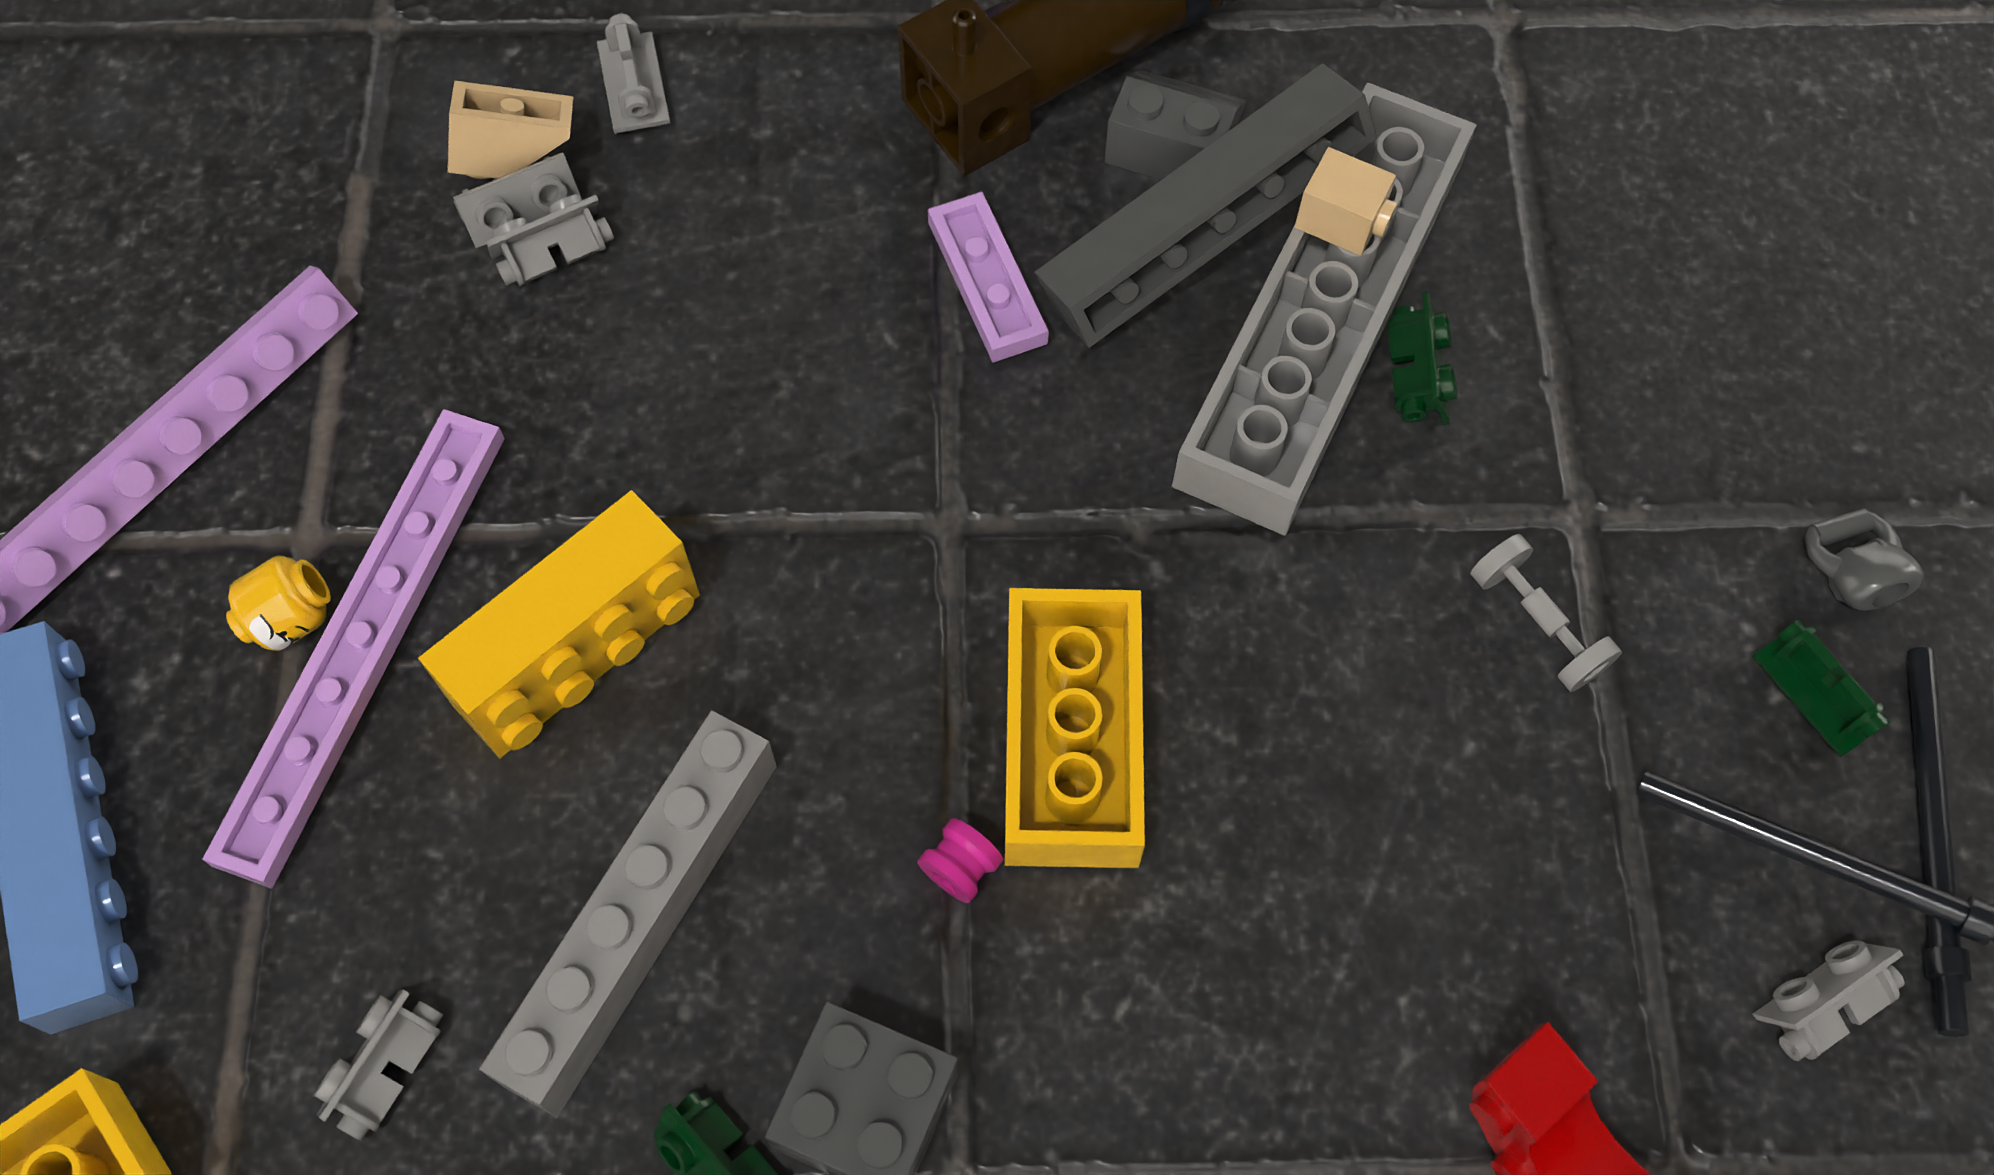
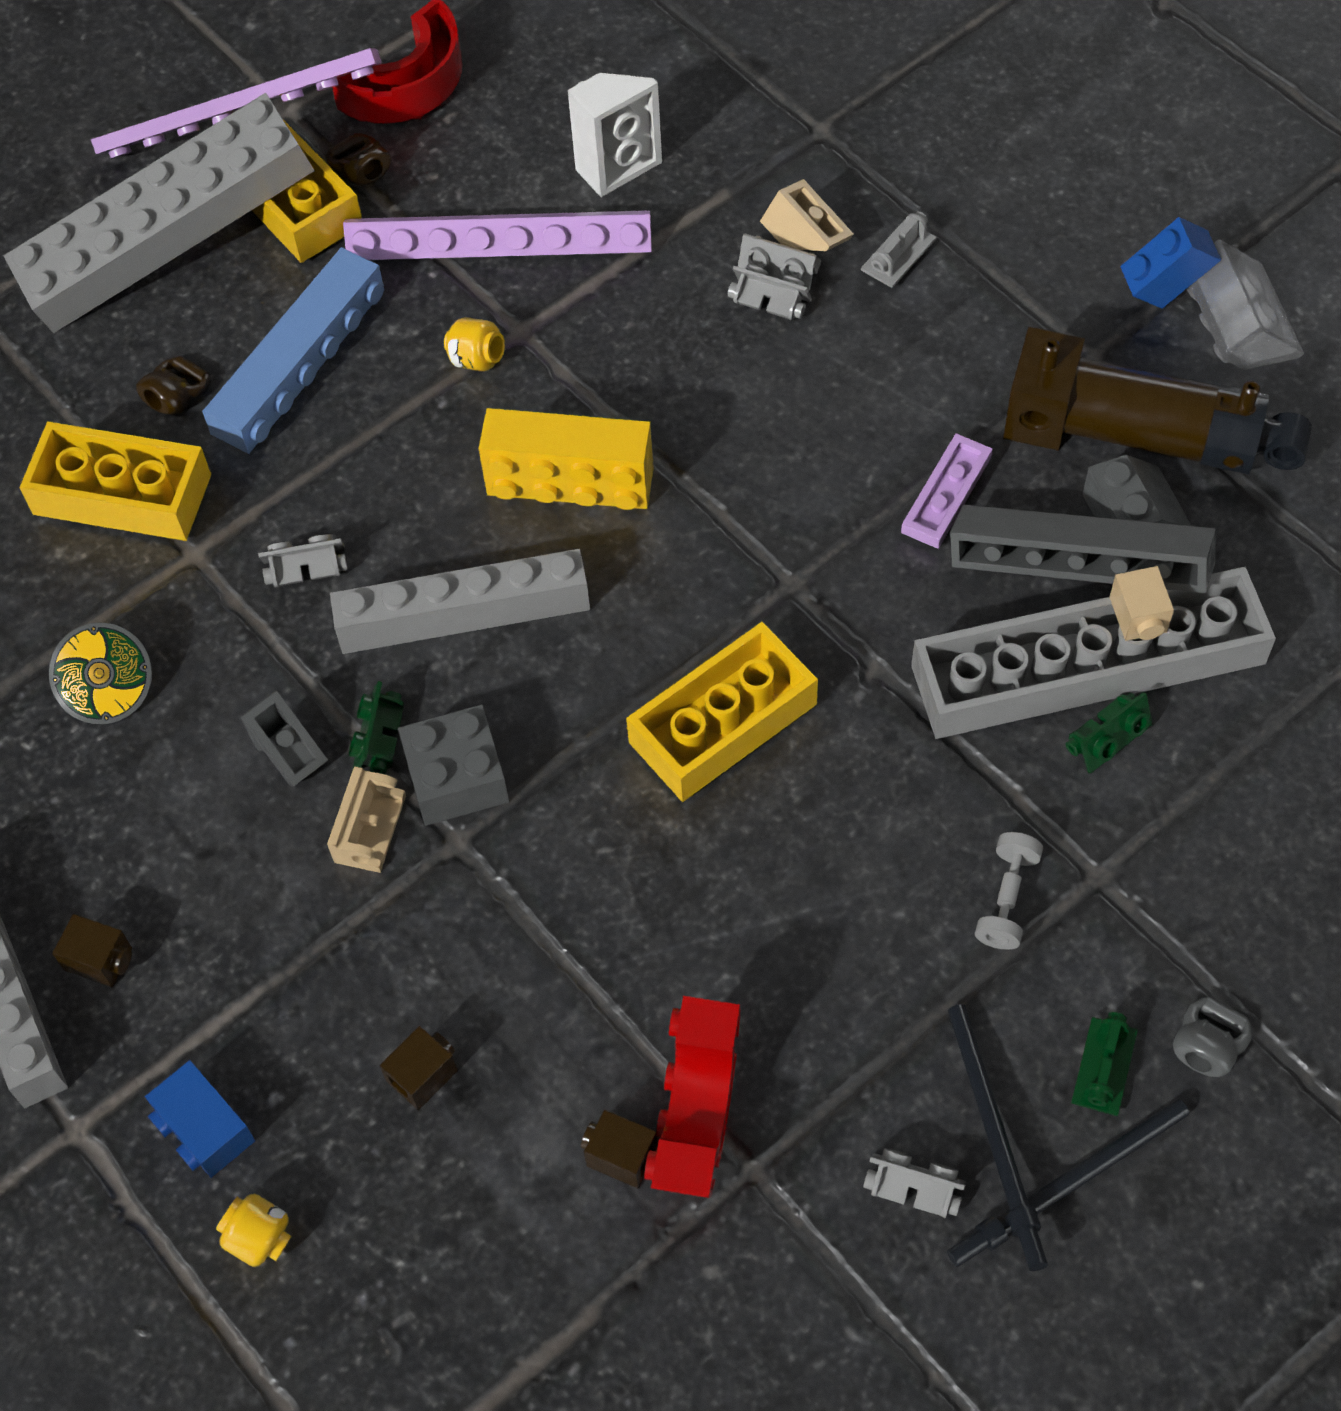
camera: 55 degrees right, 5 degrees down
(161, 205) = (615, 129): none -> white slope
(354, 651) = (490, 388): lavender plate -> none
(960, 860) = (609, 717): dark pink wheel -> none

